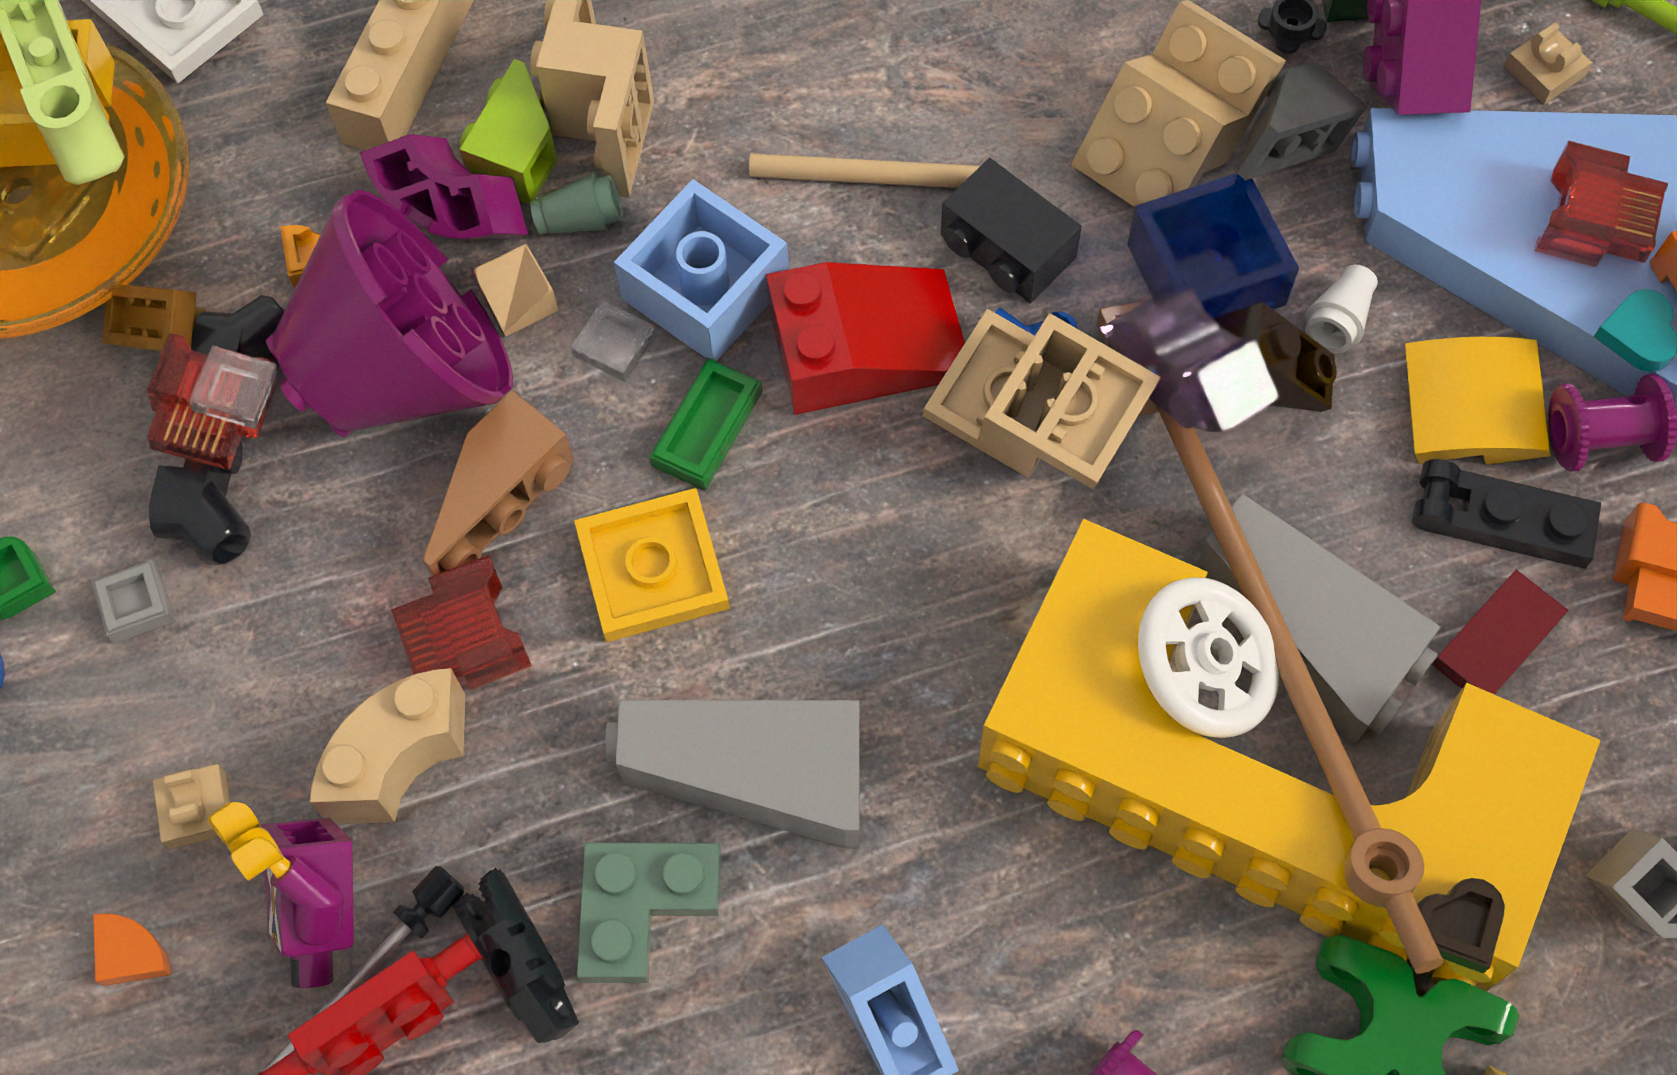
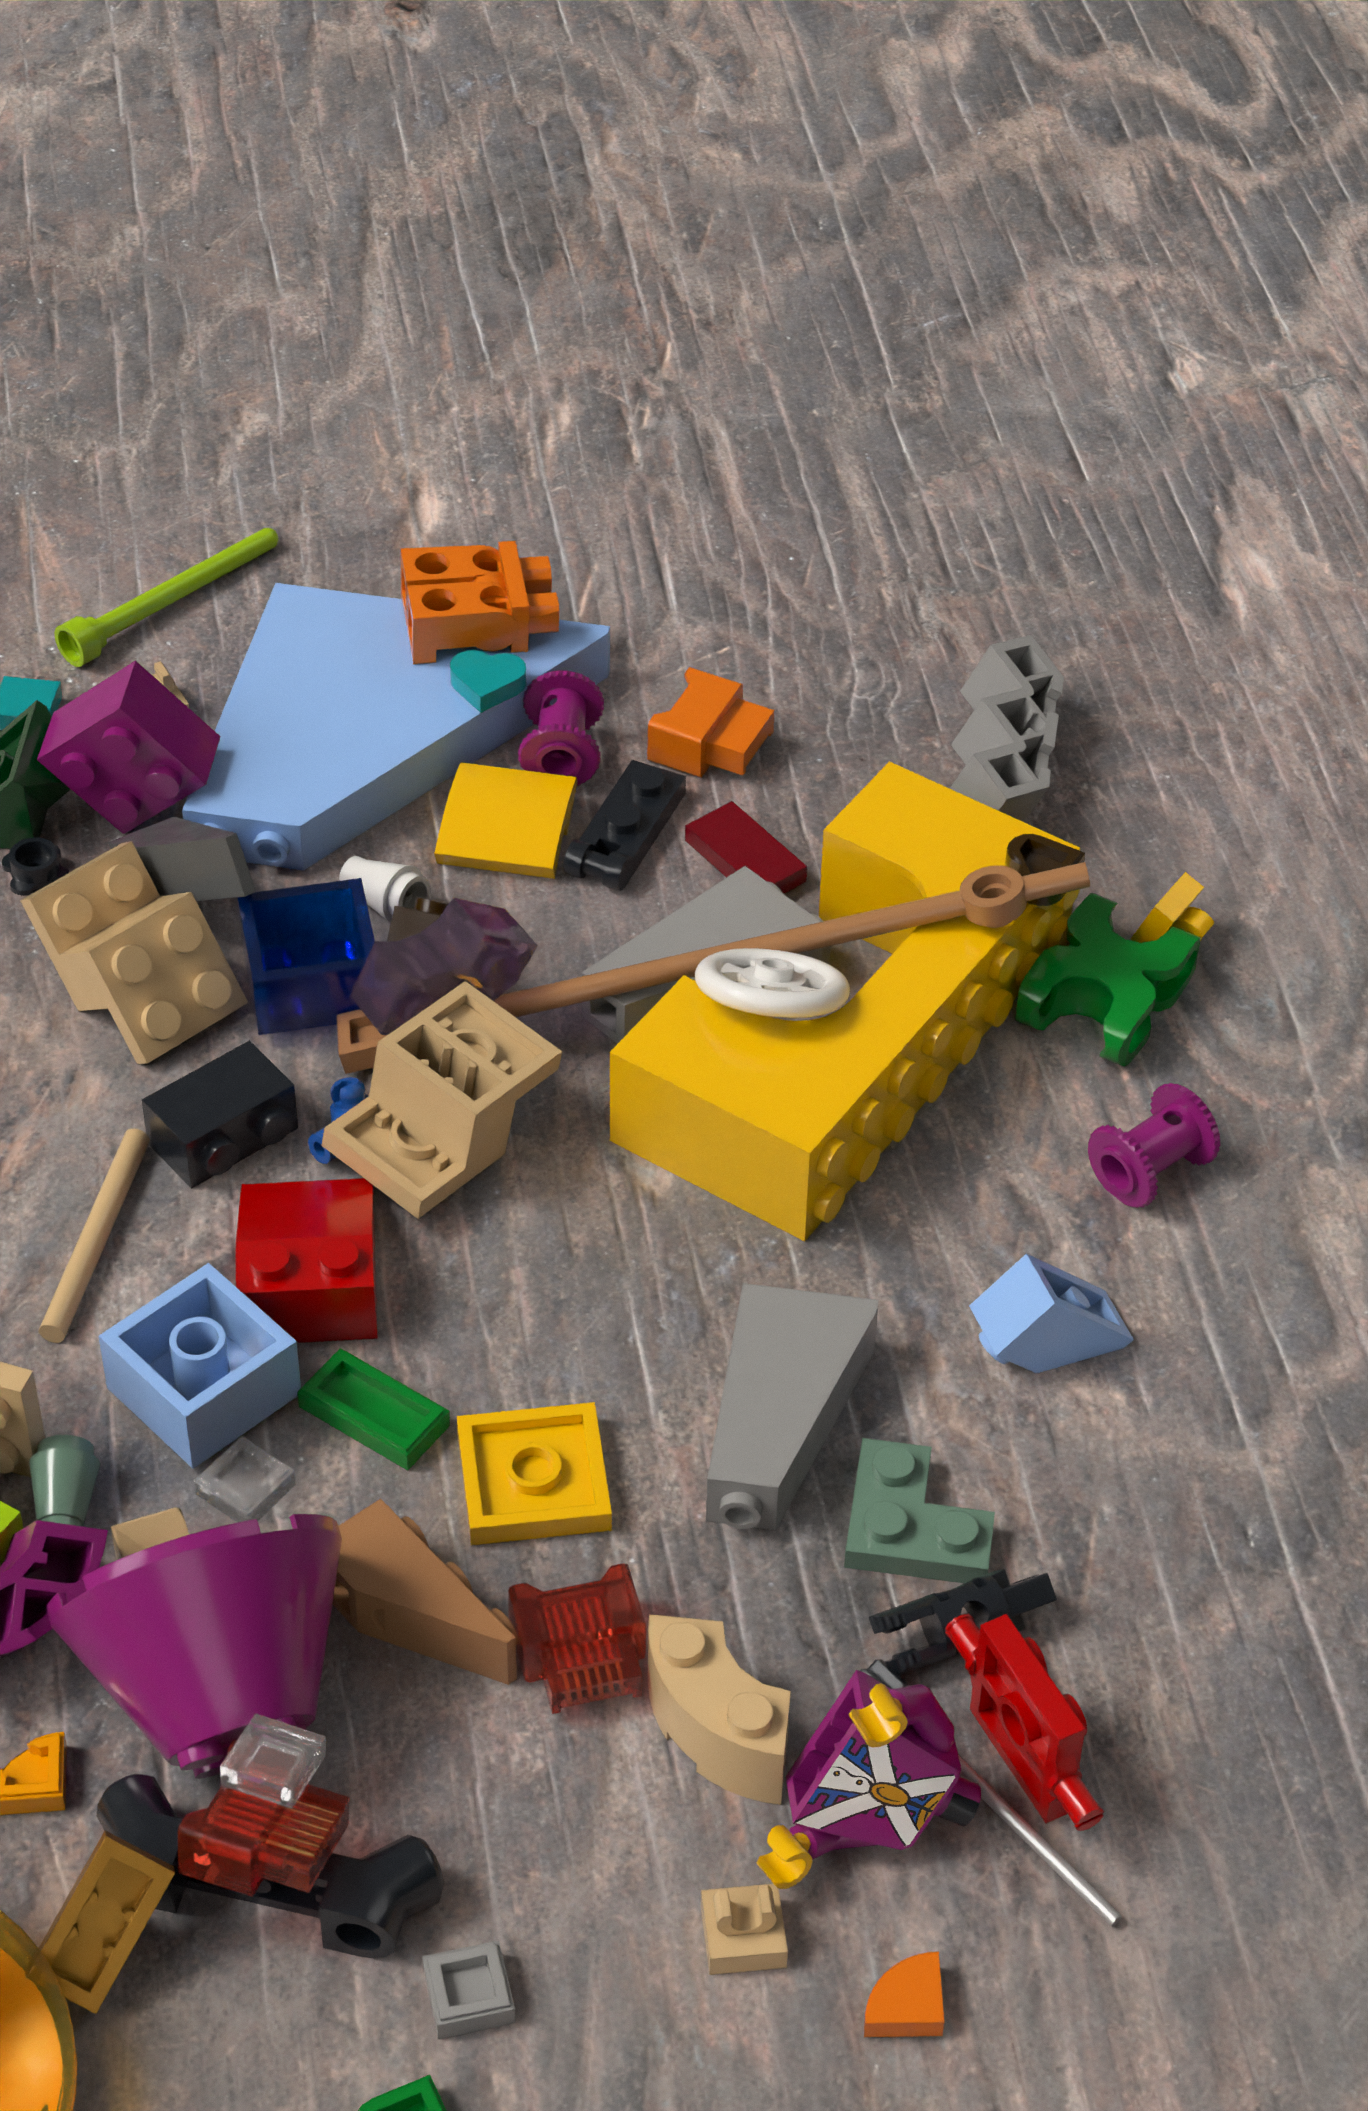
camera: 85 degrees left, 20 degrees down
(1601, 208) = (355, 673): clear red piece -> none

